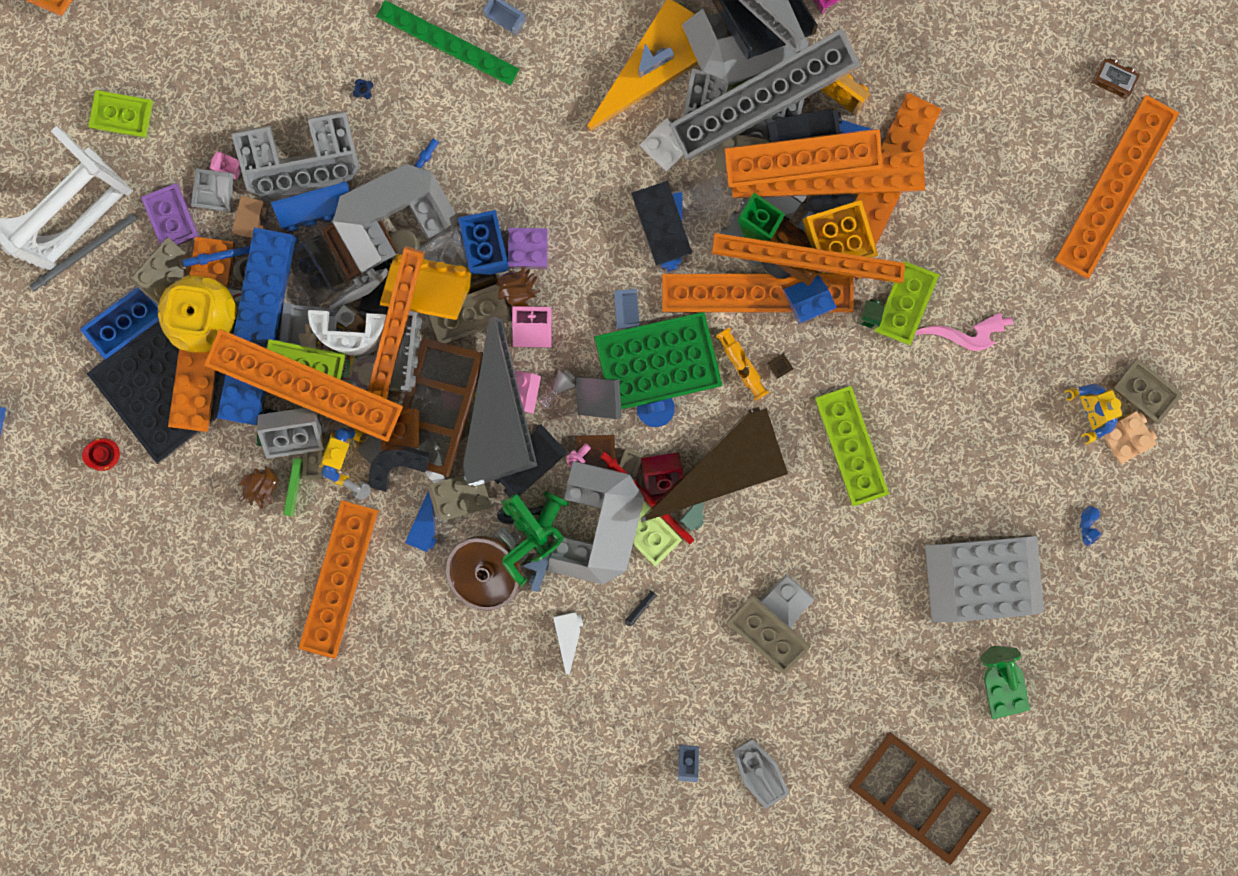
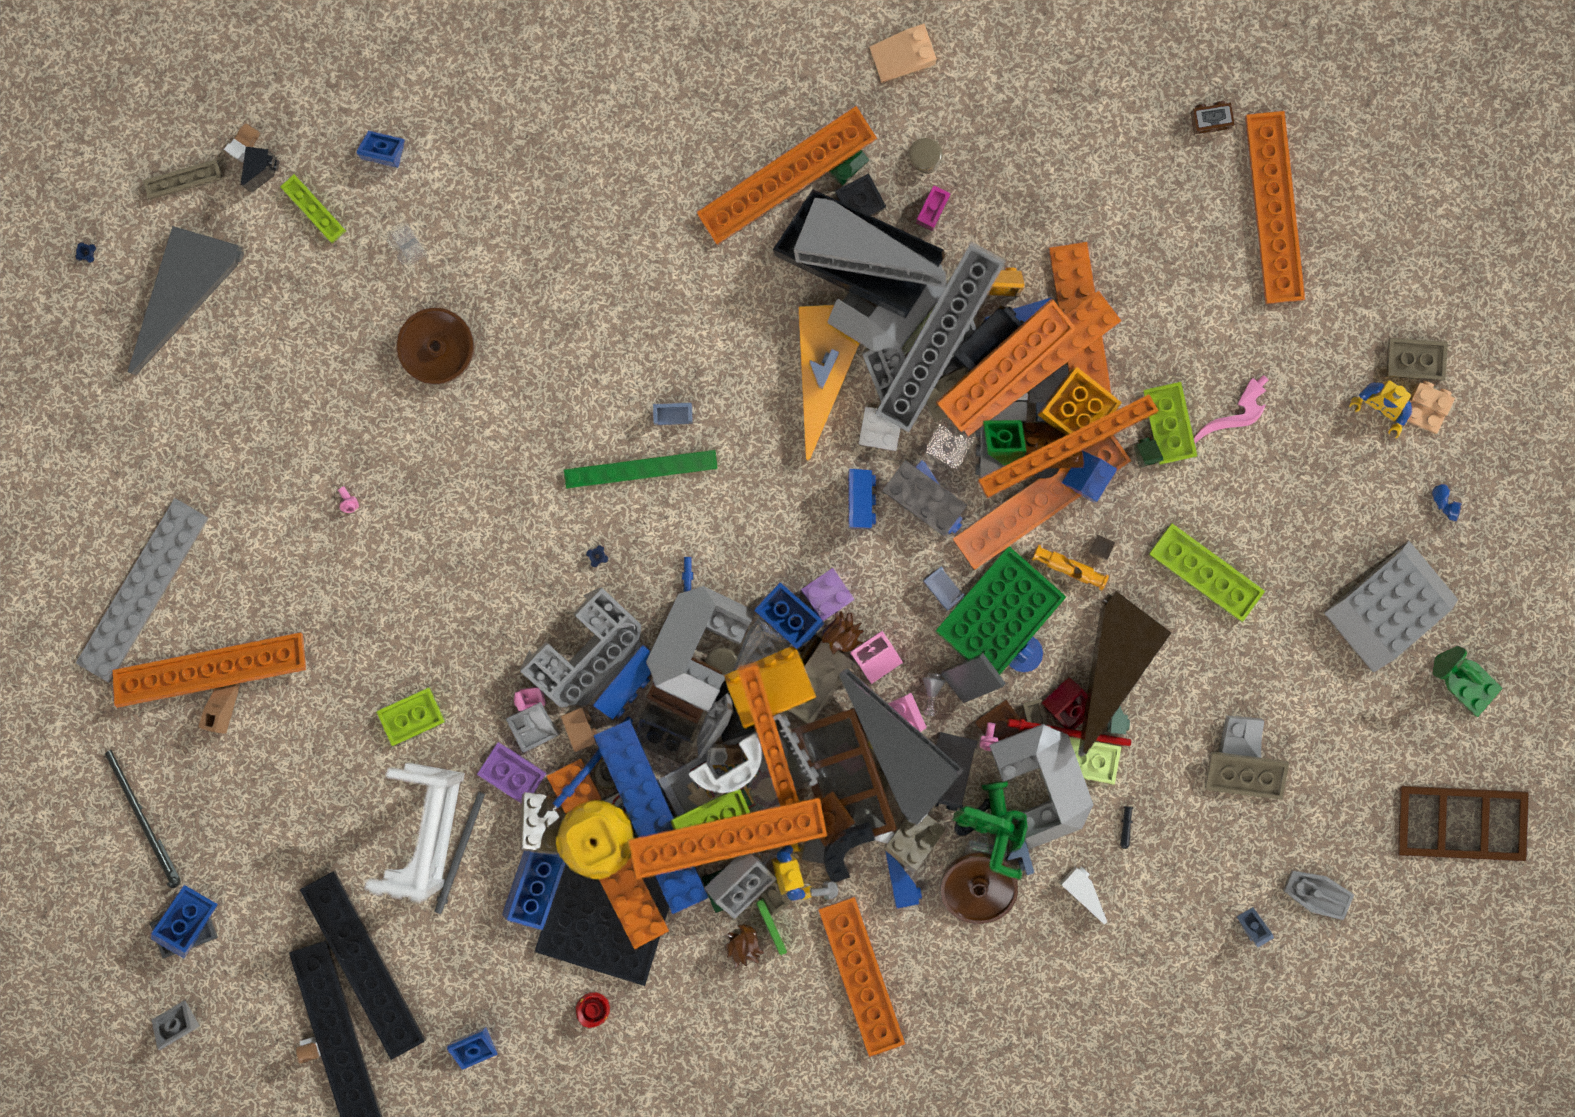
camera: 30 degrees left, 0 degrees up
(609, 189) = (861, 499): none -> blue slope

